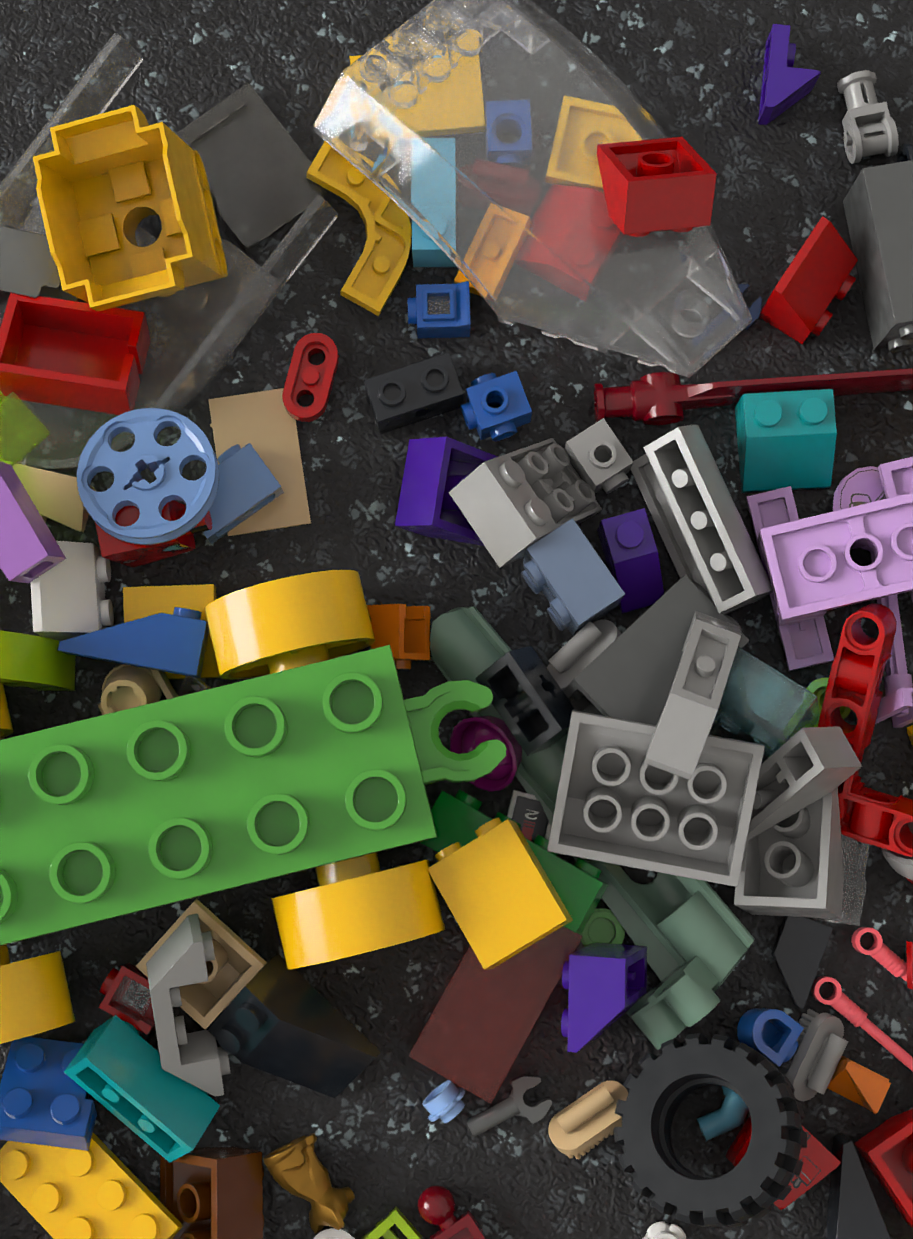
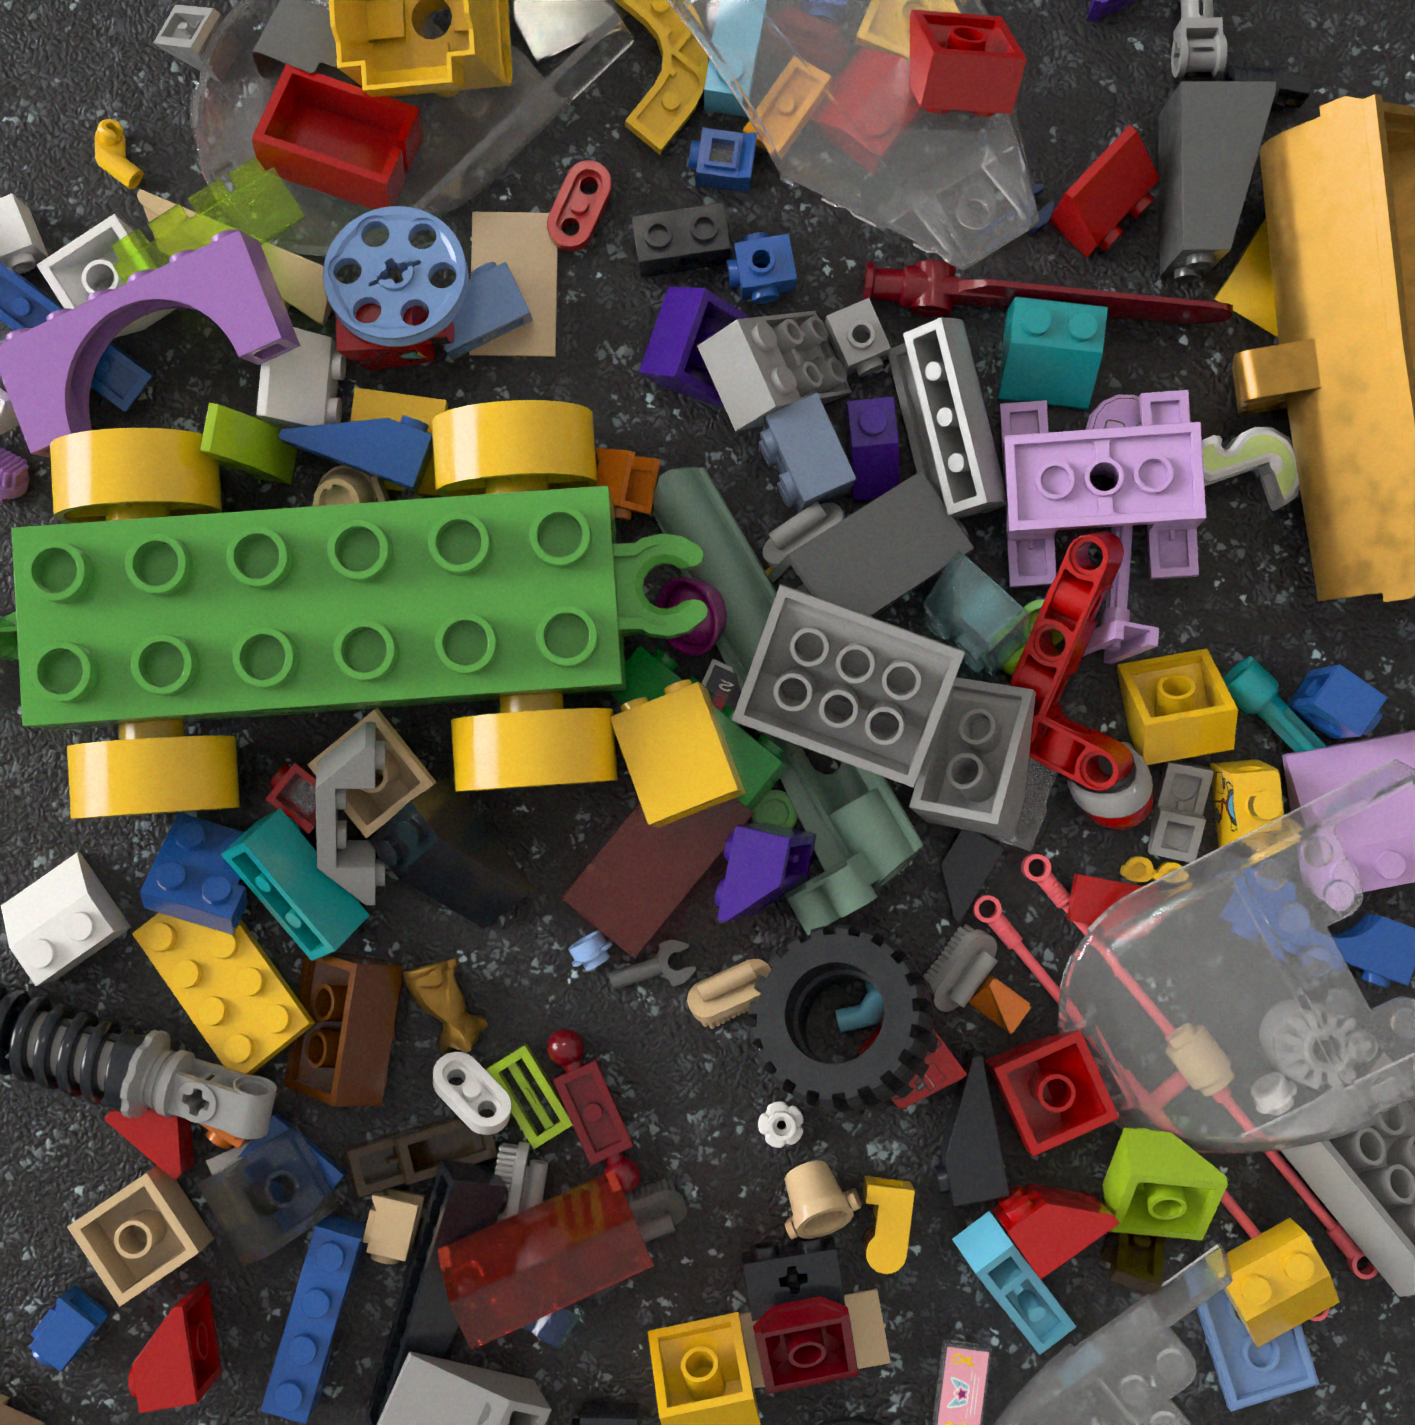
camera: 10 degrees right, 5 degrees up
(528, 699) = (739, 567): black brick -> none
(694, 695) = (903, 589): light grey slope -> none
(770, 1033) = (922, 940): blue plate -> none
(800, 774) = (995, 690): light grey slope -> none

